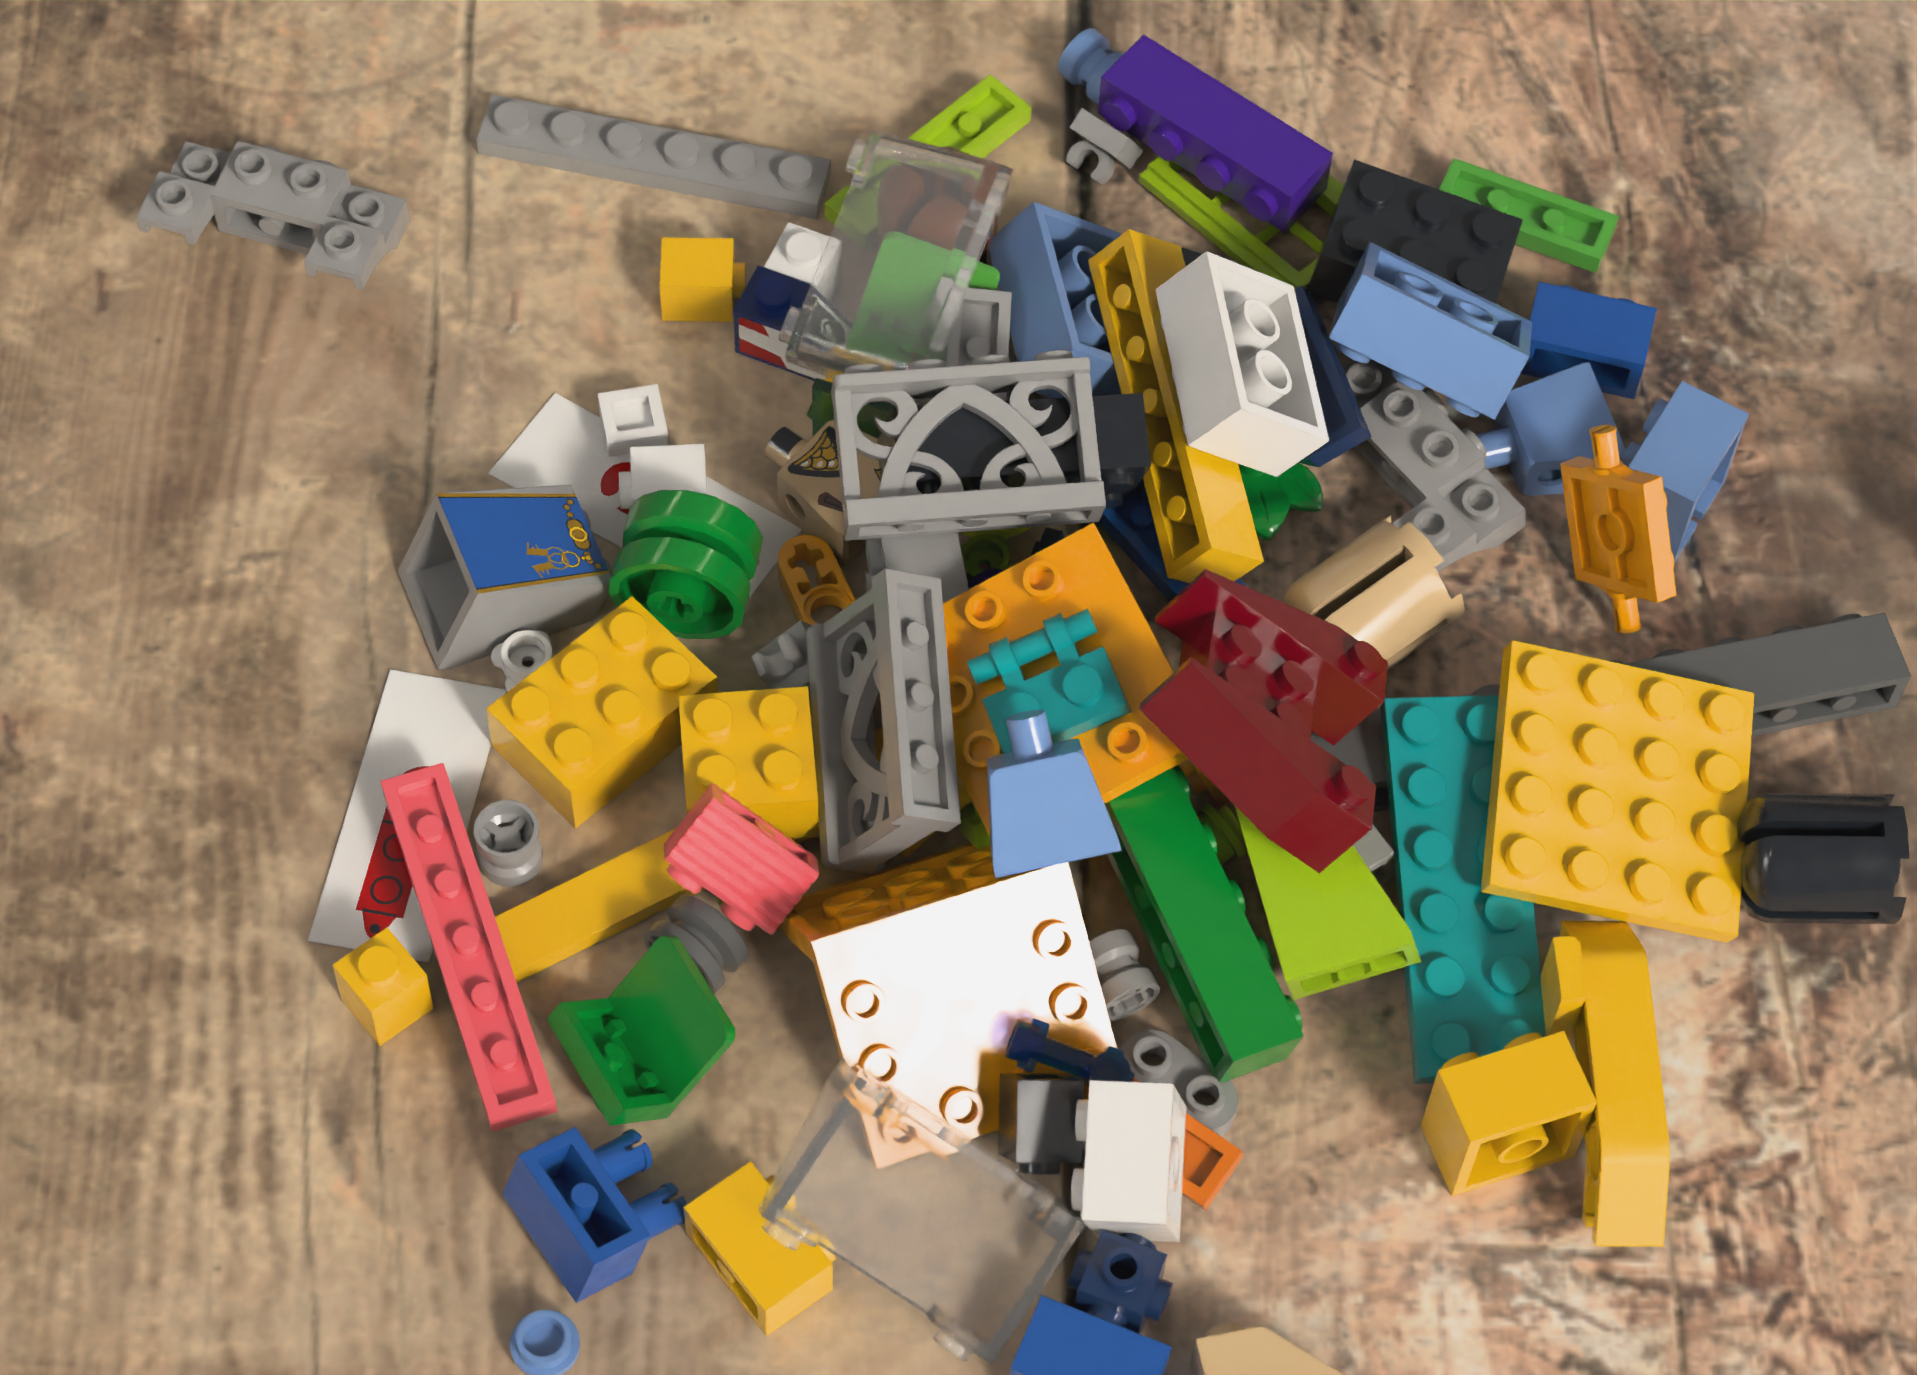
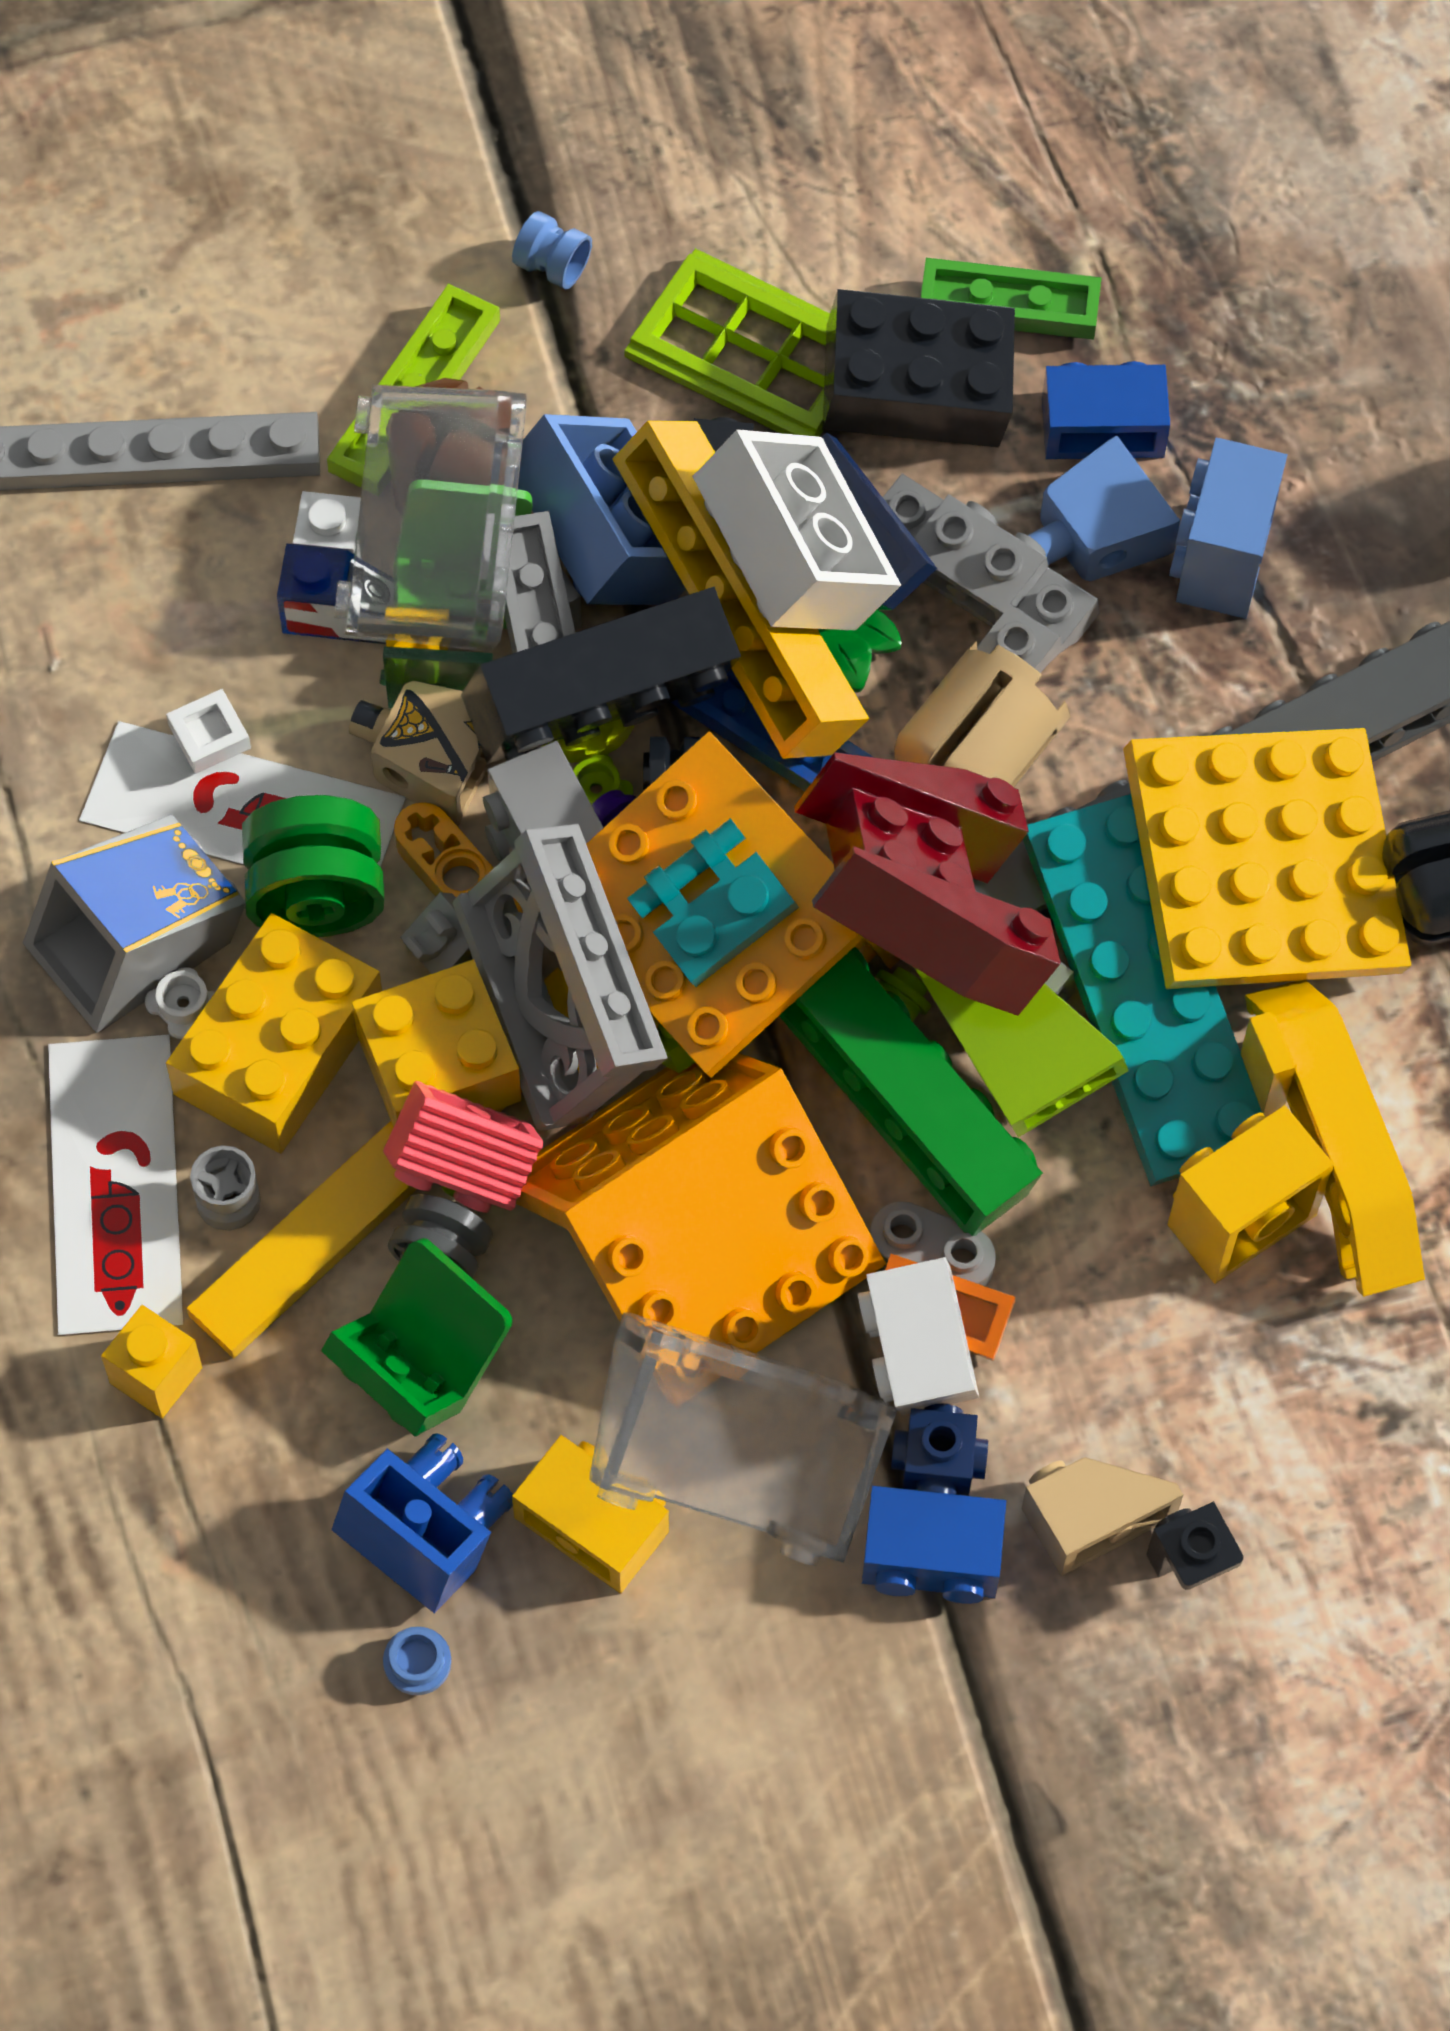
camera: 15 degrees left, 5 degrees up
(468, 948) = (222, 1300): coral plate -> none
(663, 469) = (258, 780): white brick -> none
(699, 279) = (228, 569): yellow brick -> none
(905, 510) = (513, 757): light grey fence -> none
(1031, 1045) = (791, 1252): bar -> none
(1039, 1120) = (820, 1320): black brick -> none
(1044, 801) = (743, 1018): medium blue torso -> none
(1102, 141) = (579, 326): light grey tile -> none
(1122, 979) = (856, 1162): light grey wheel -> none
(1214, 133) = (689, 293): dark purple brick -> none
(1431, 332) = (962, 447): medium blue brick -> none
(1618, 529) = (1193, 598): light orange plate -> none

